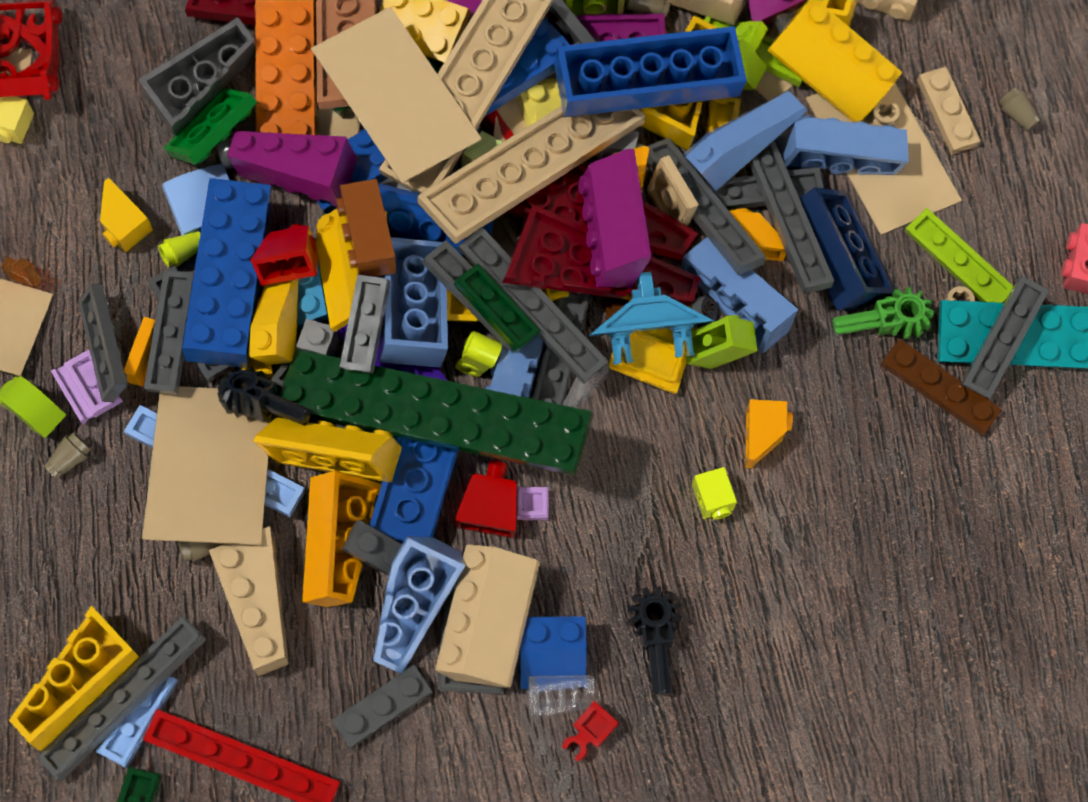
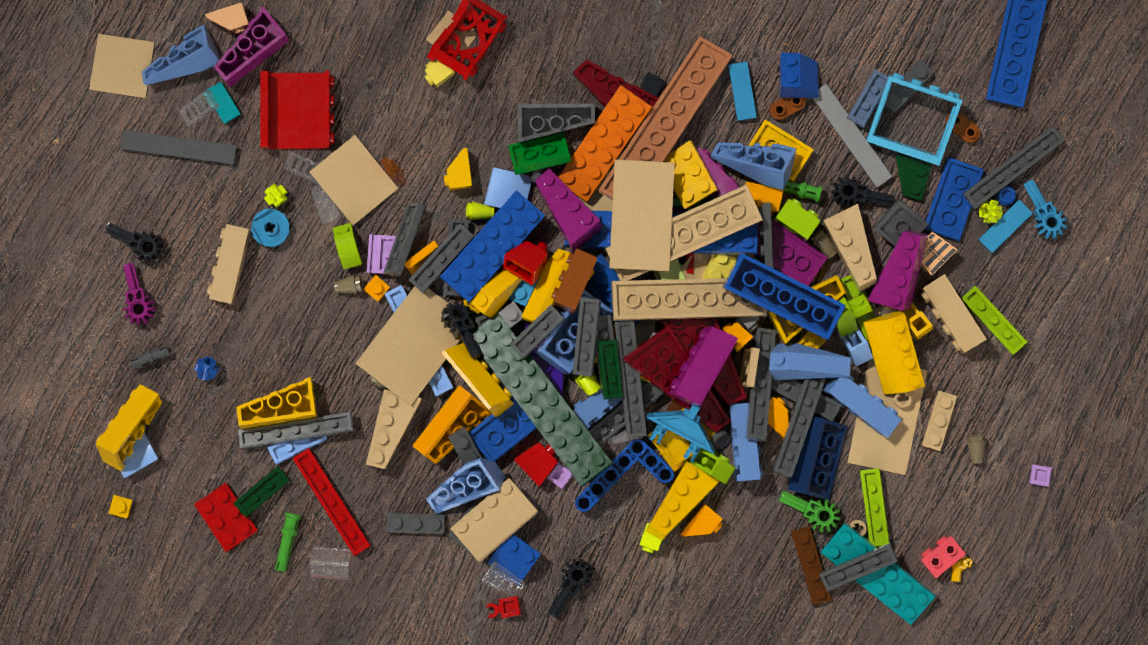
camera: 40 degrees right, 15 degrees up
(109, 435) = (376, 288): none -> light orange plate
(435, 283) = (586, 336): none -> dark grey plate
(605, 438) = (620, 471): none -> blue beam
(713, 410) = (684, 495): none -> yellow wedge
(778, 81) = (856, 347): none -> light blue slope

